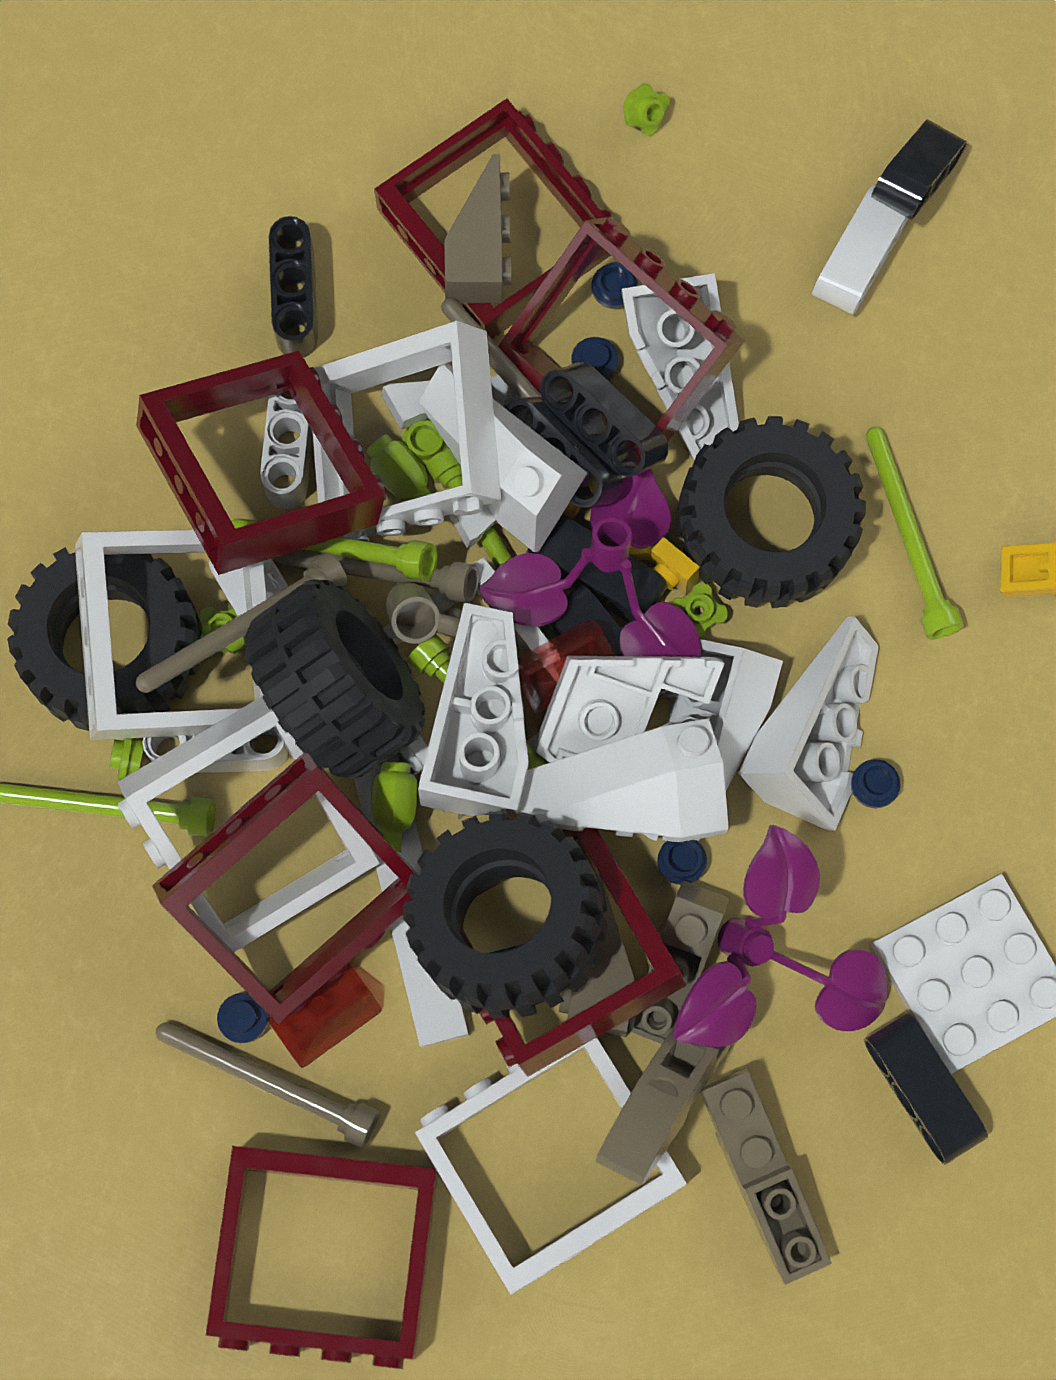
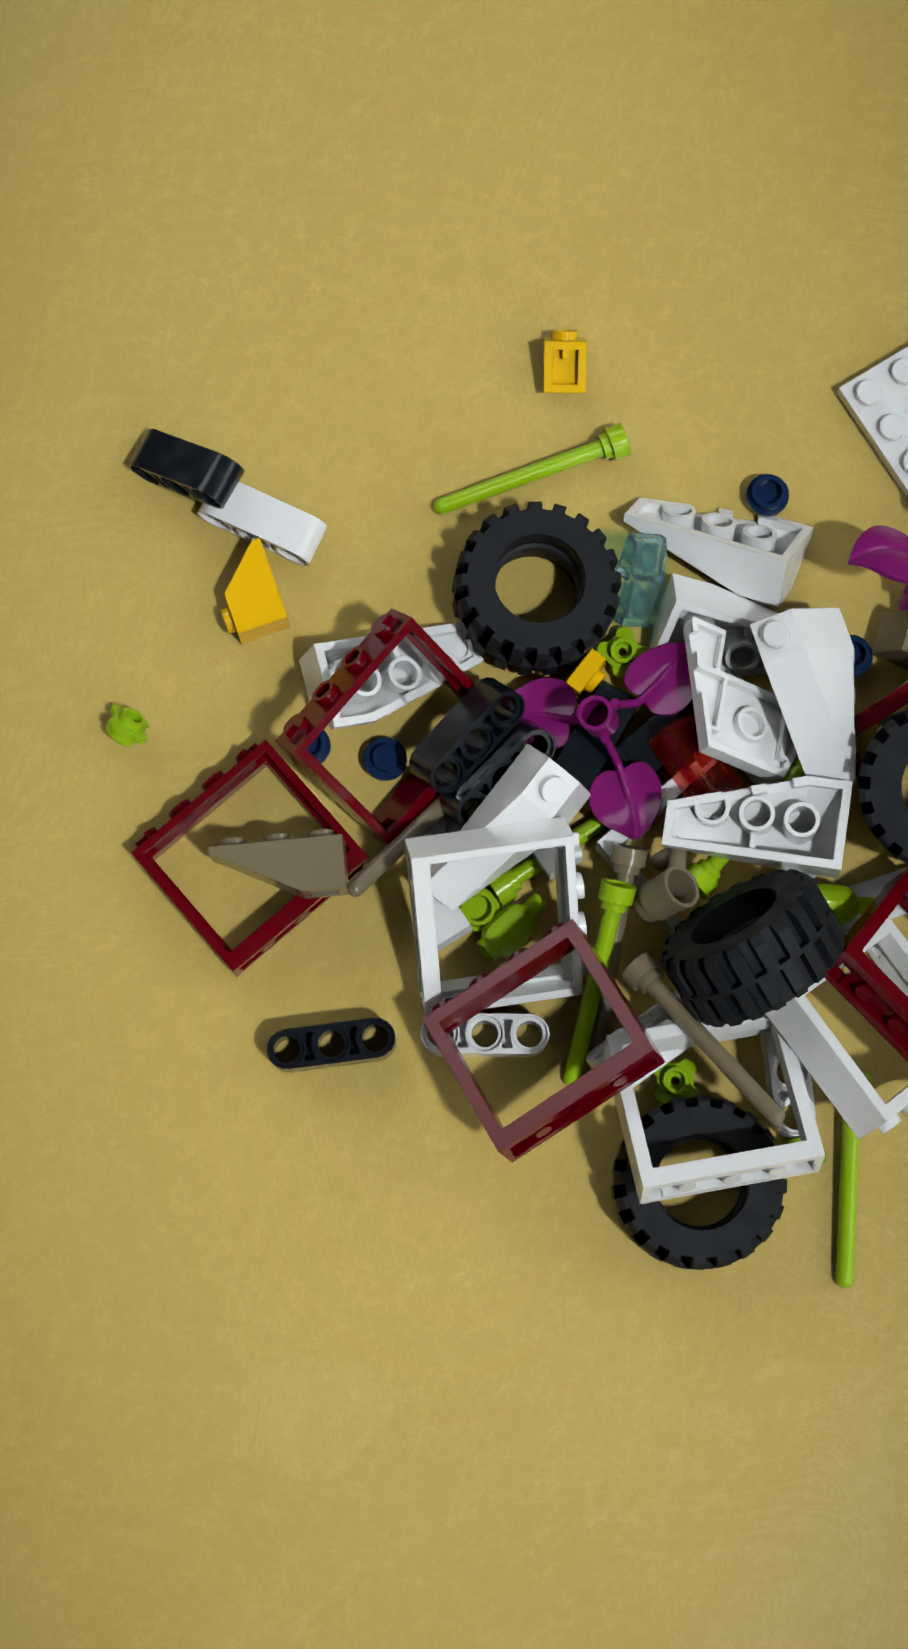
camera: 95 degrees left, 5 degrees up
(777, 629) = (644, 573): none -> clear light blue slope
(779, 237) = (254, 598): none -> yellow slope

